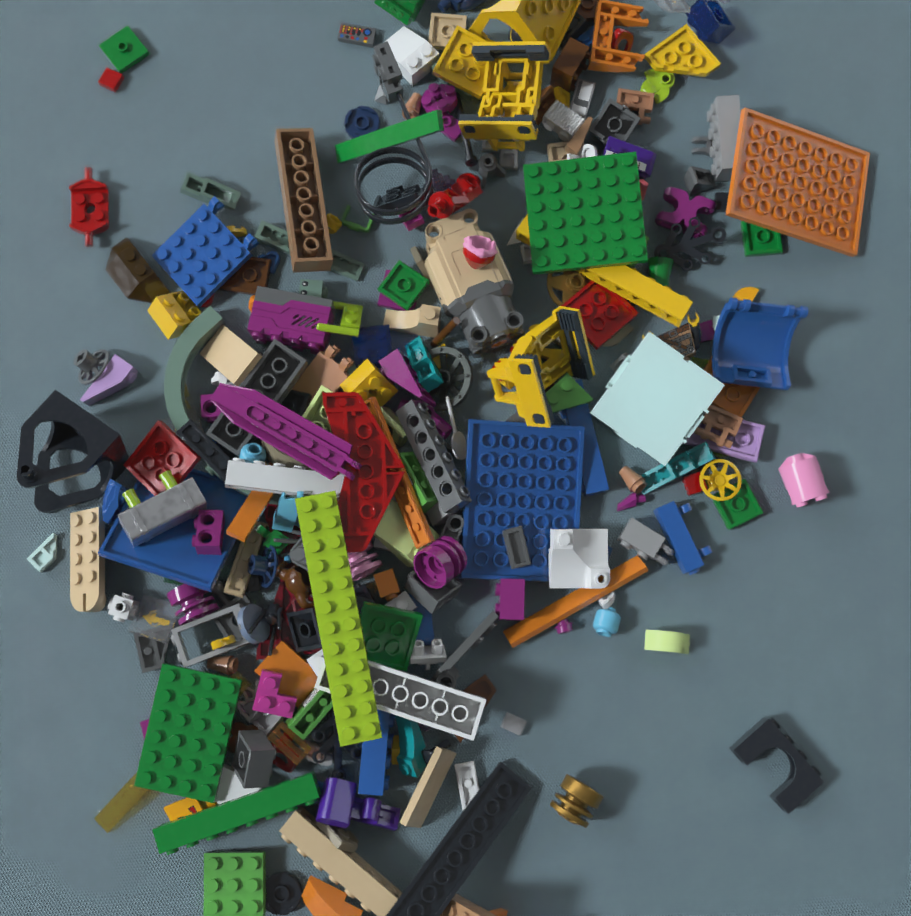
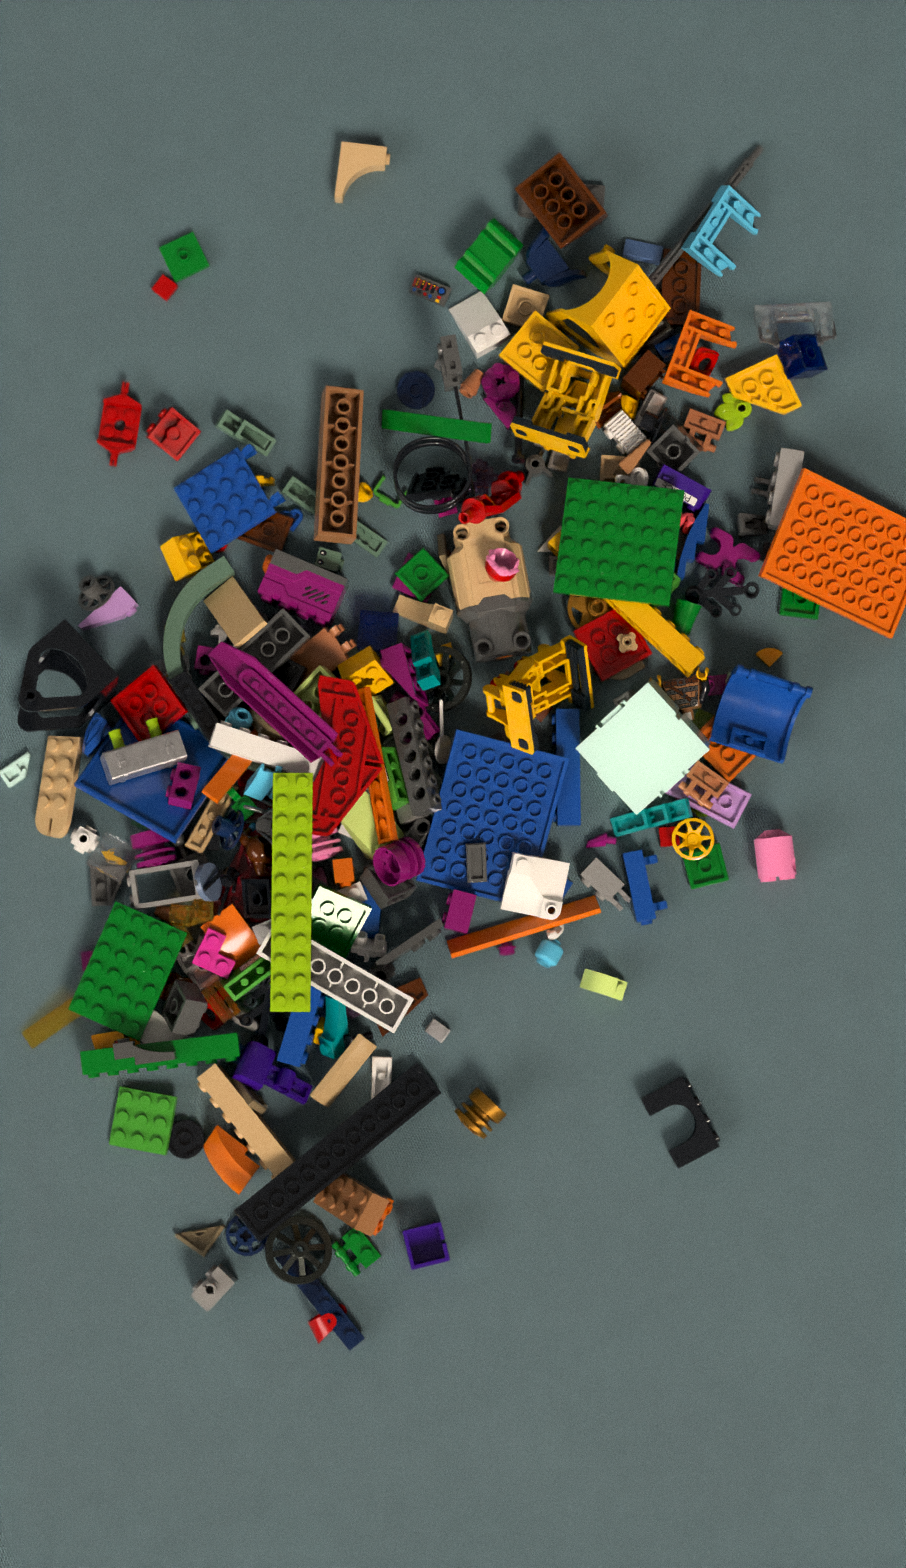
camera: 15 degrees right, 5 degrees up
(133, 273) = (152, 504): dark brown wedge -> none
(140, 204) = (172, 433): none -> red plate
(216, 820) = (128, 1049): none -> dark grey slope
(217, 644) = (177, 893): yellow tile -> none
(240, 662) = (197, 913): none -> clear yellow slope
(350, 320) = (361, 600): lime plate -> none
(445, 331) = (453, 633): reddish brown bar -> none
(567, 395) = (558, 722): bright green wing -> none
(586, 105) = (652, 423): none -> black wheel
(608, 306) = (623, 647): none -> tan plate
(633, 480) = (607, 820): nougat cone -> none
(651, 202) = (695, 536): none -> blue slope

